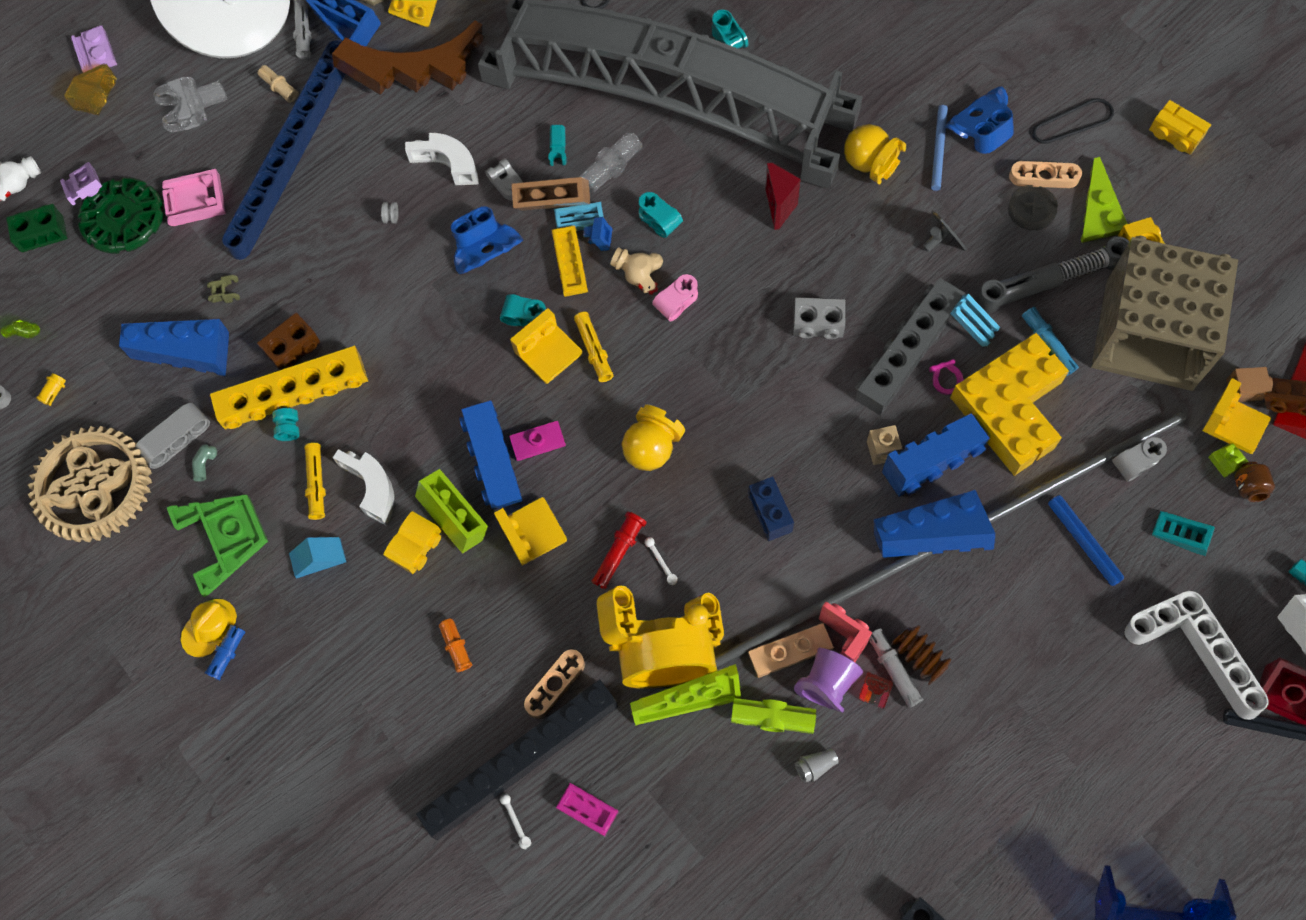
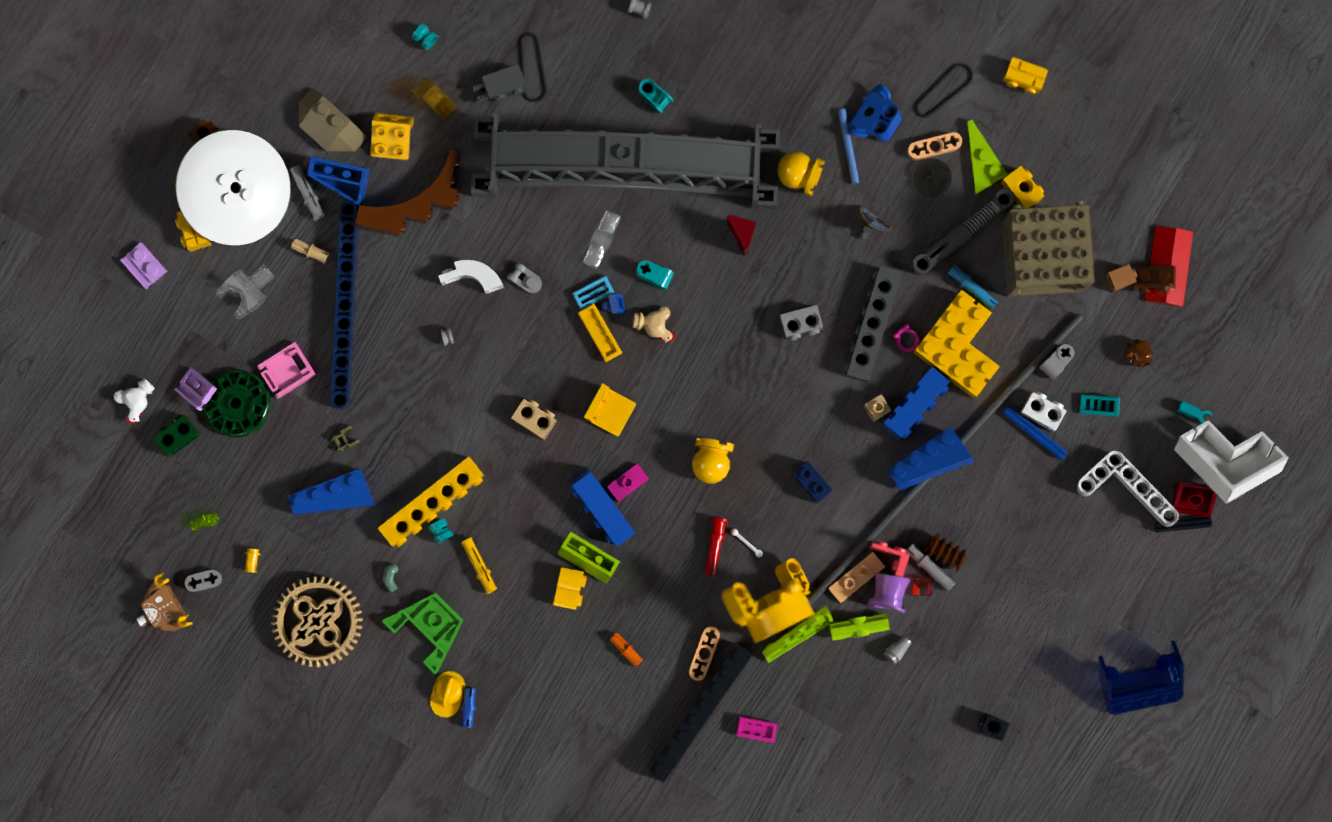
camera: 20 degrees left, 15 degrees up
(90, 89) = (161, 304): clear yellow slope -> none
(155, 36) = (190, 238): none -> yellow brick
(172, 435) = (360, 565): light grey beam -> none
(286, 338) = (410, 464): reddish brown brick -> none
(316, 555) = (503, 619): dark azure slope -> none
(379, 494) = (531, 561): white arch -> none
(449, 333) = (532, 422): none -> tan brick
(474, 233) = (542, 329): blue piece -> none
(520, 310) = (578, 387): teal piece -> none
(524, 841) = (722, 763): white hinge -> none
(531, 530) = (649, 551): yellow bracket -> none
(551, 193) = (568, 285): medium nougat brick -> none
(557, 144) = (554, 235): teal bar -> none
(597, 355) = (647, 403): yellow pin -> none
(674, 299) = (689, 342): bright pink piece -> none
(977, 317) = (927, 294): medium azure tile -> none
(1099, 520) = (1041, 416): none -> white brick
(1228, 459) = (1119, 339): lime tile -> none
(1235, 421) = (1118, 311): yellow bracket -> none

